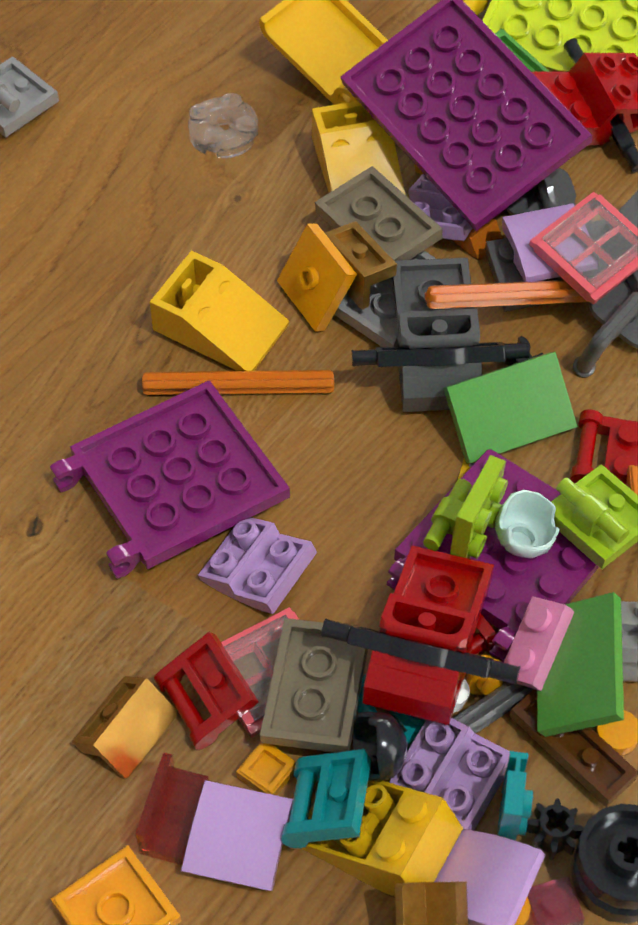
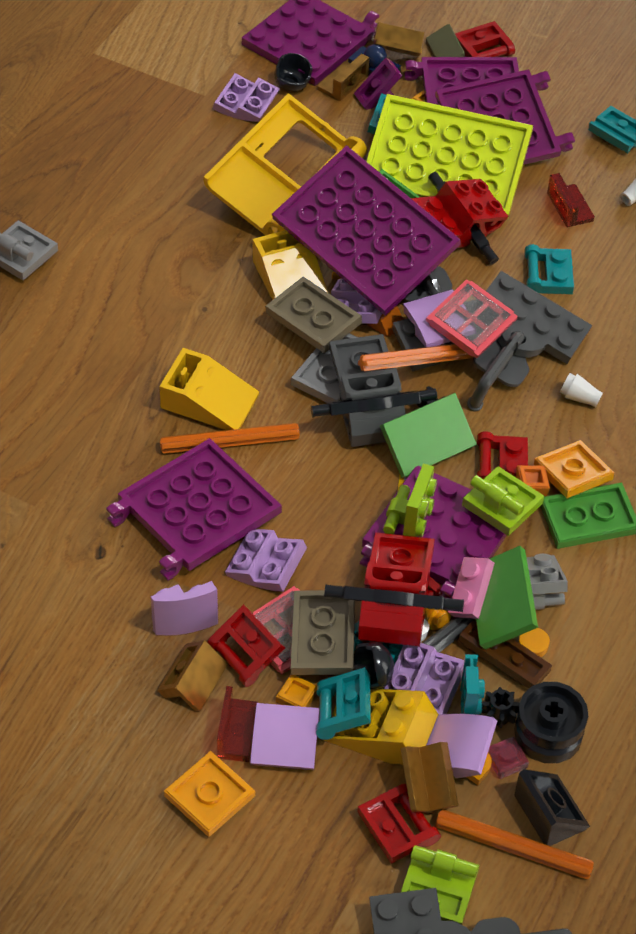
camera: 10 degrees left, 5 degrees down
(128, 632) = (184, 612): none -> lavender slope
(223, 111) = (185, 246): clear plate -> none
(316, 277) = (275, 358): light orange plate -> none
(365, 258) = (303, 345): pearl gold panel -> none
(526, 524) = (452, 510): light aqua hair -> none

